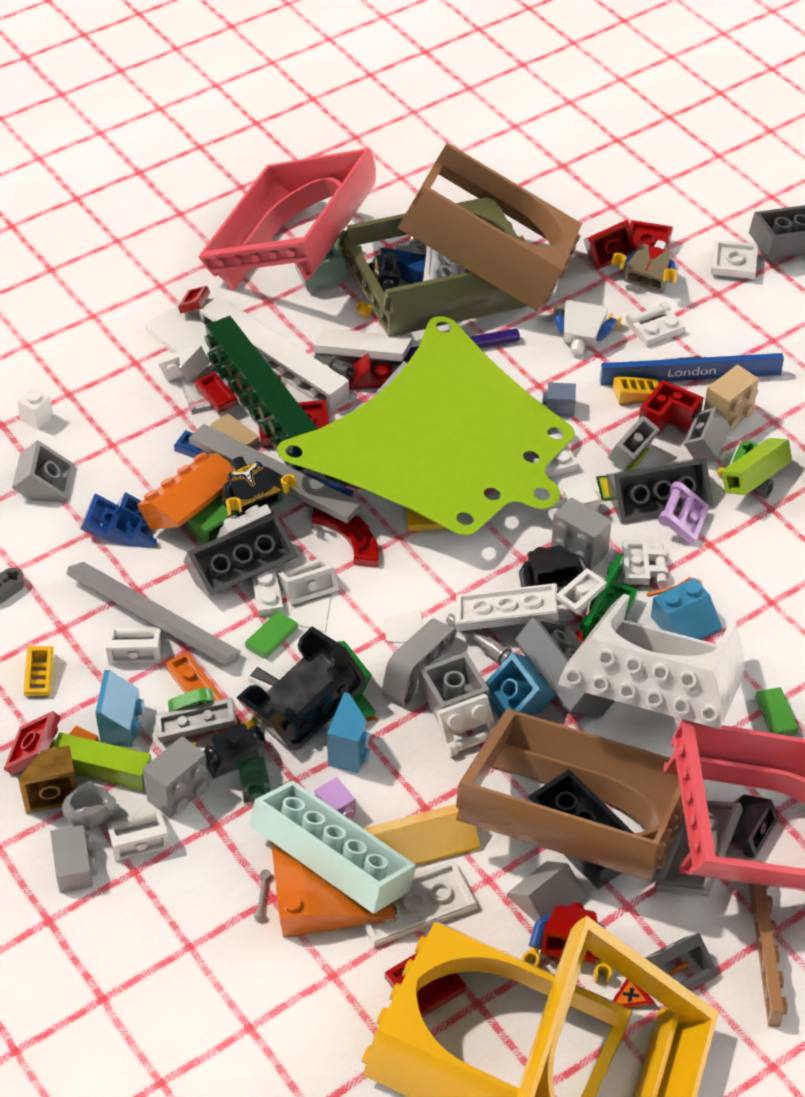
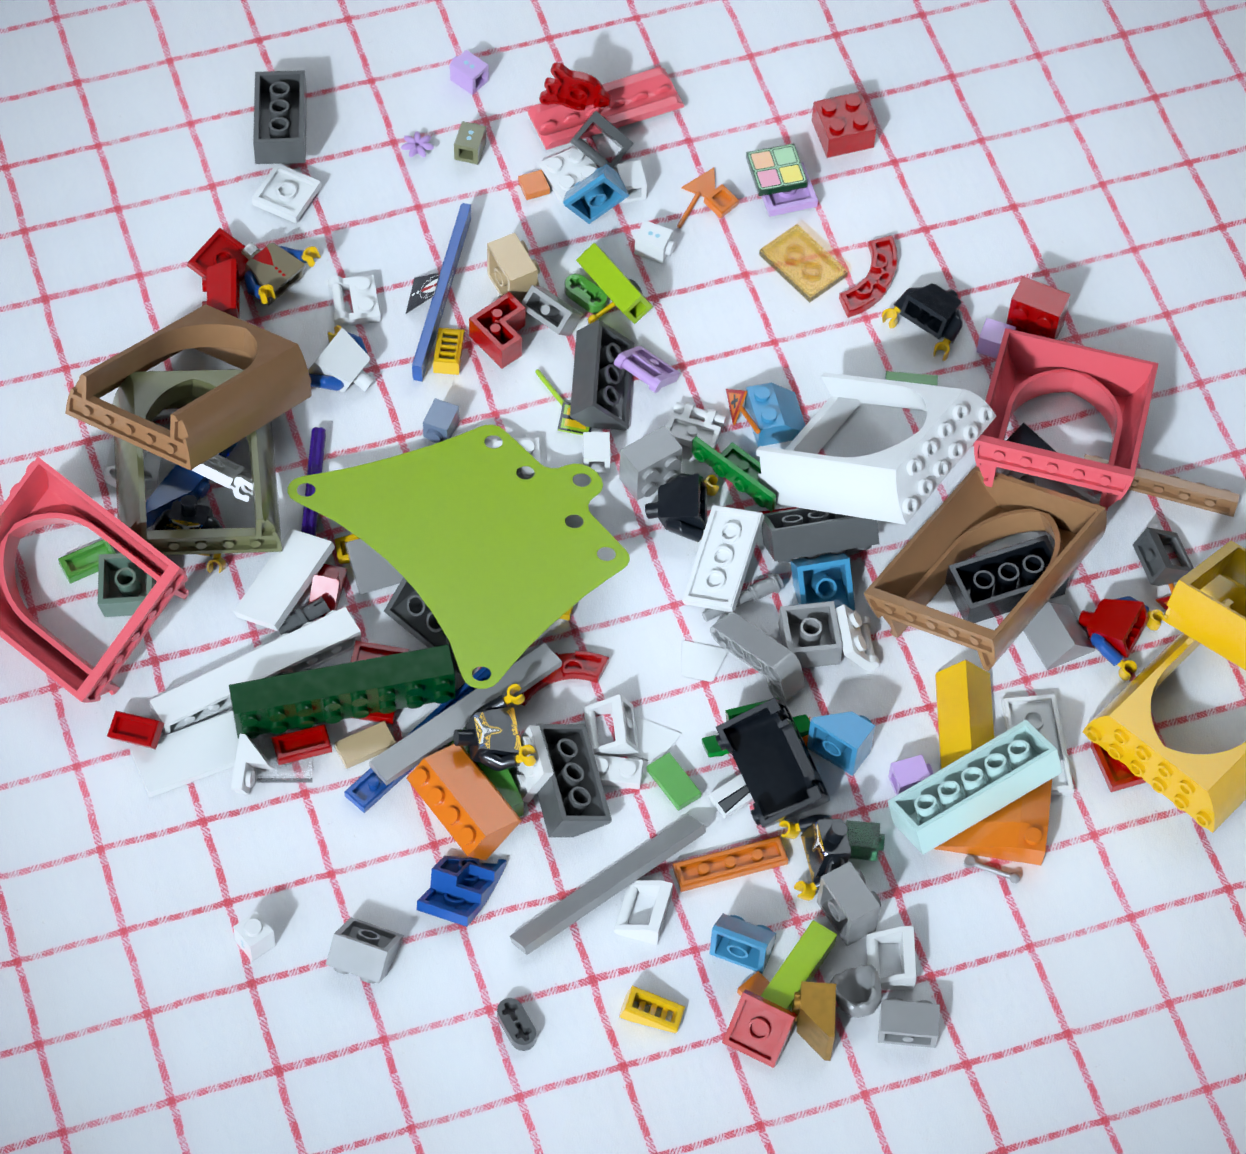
camera: 75 degrees left, 10 degrees up
(191, 698) = (751, 871): bright green beam -> none
(196, 720) = (774, 872): light grey plate -> none
(581, 591) = (738, 485): white slope -> none
(633, 443) = (537, 377): light grey brick -> none

